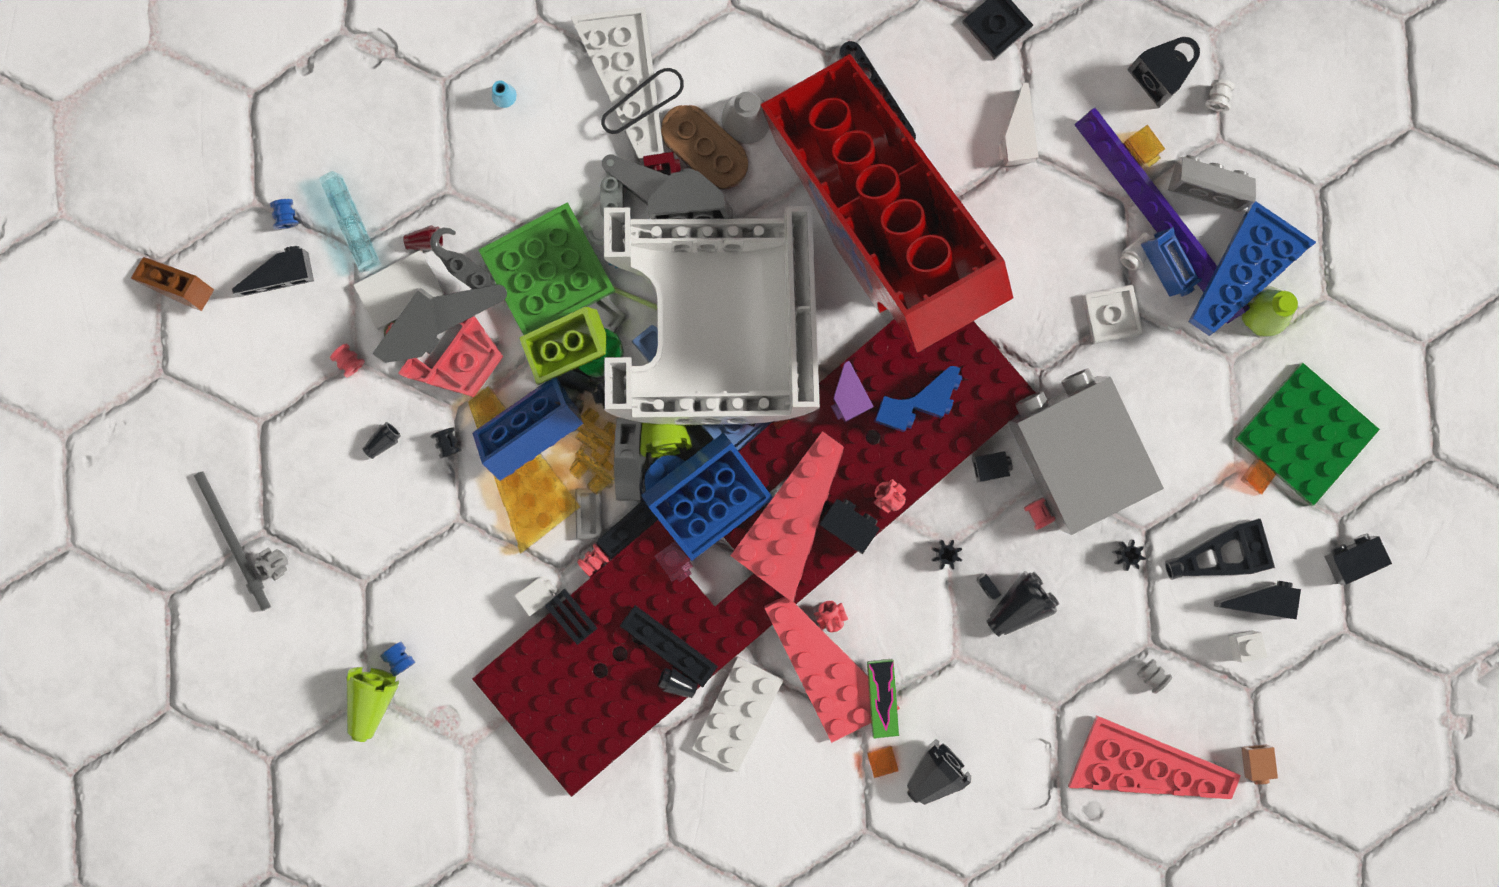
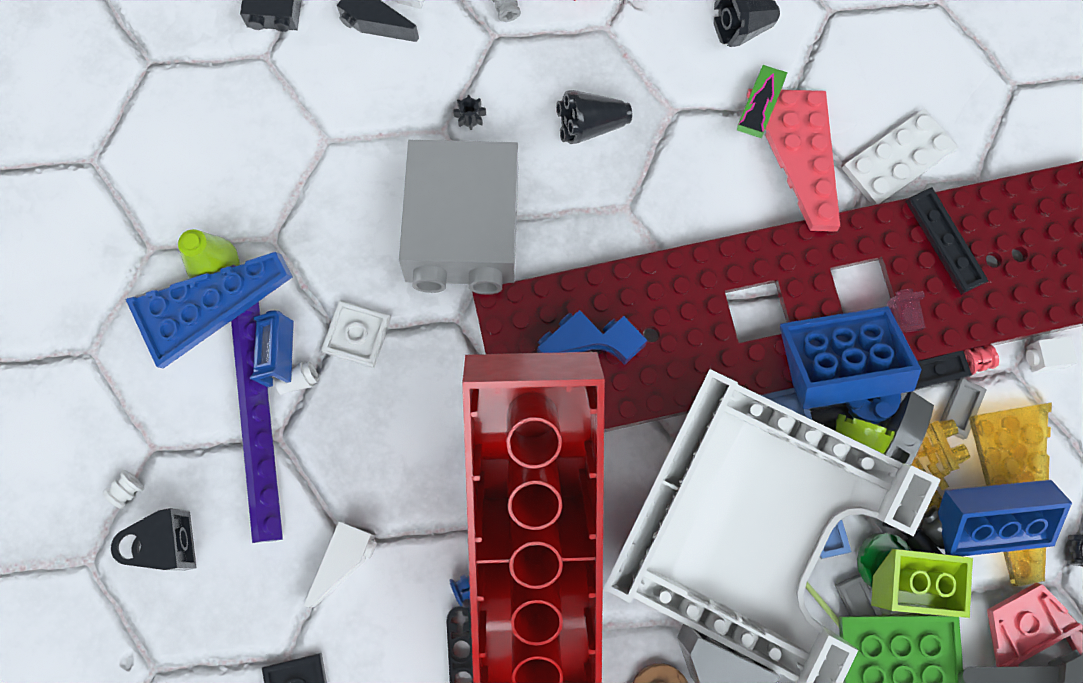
camera: 150 degrees left, 10 degrees down
(557, 599) = (1036, 313): black tile -> none
(676, 683) = (956, 202): black cone -> none
(787, 527) = (784, 286): coral wing -> none
(831, 616) = (773, 195): coral gear -> none
(849, 525) = (721, 259): black brick -> none
(850, 396) = (657, 379): medium lavender slope -> none
(882, 761) = (785, 55): clear orange plate -> none
(889, 496) = (668, 265): coral gear -> none
(953, 557) = (643, 195): black gear -> none
(988, 586) = (613, 148): black tile -> none
(992, 466) = (551, 251): black brick -> none
(1039, 513) = (530, 188): coral bush -> none
(1145, 147) = (228, 477): clear yellow brick -> none
(1213, 183) = (184, 404): light grey slope -> none
(1253, 547) = (355, 63): black plate -> none
(1258, 476) = (312, 122): clear orange slope -> none
(1307, 434) = (245, 136): green plate -> none

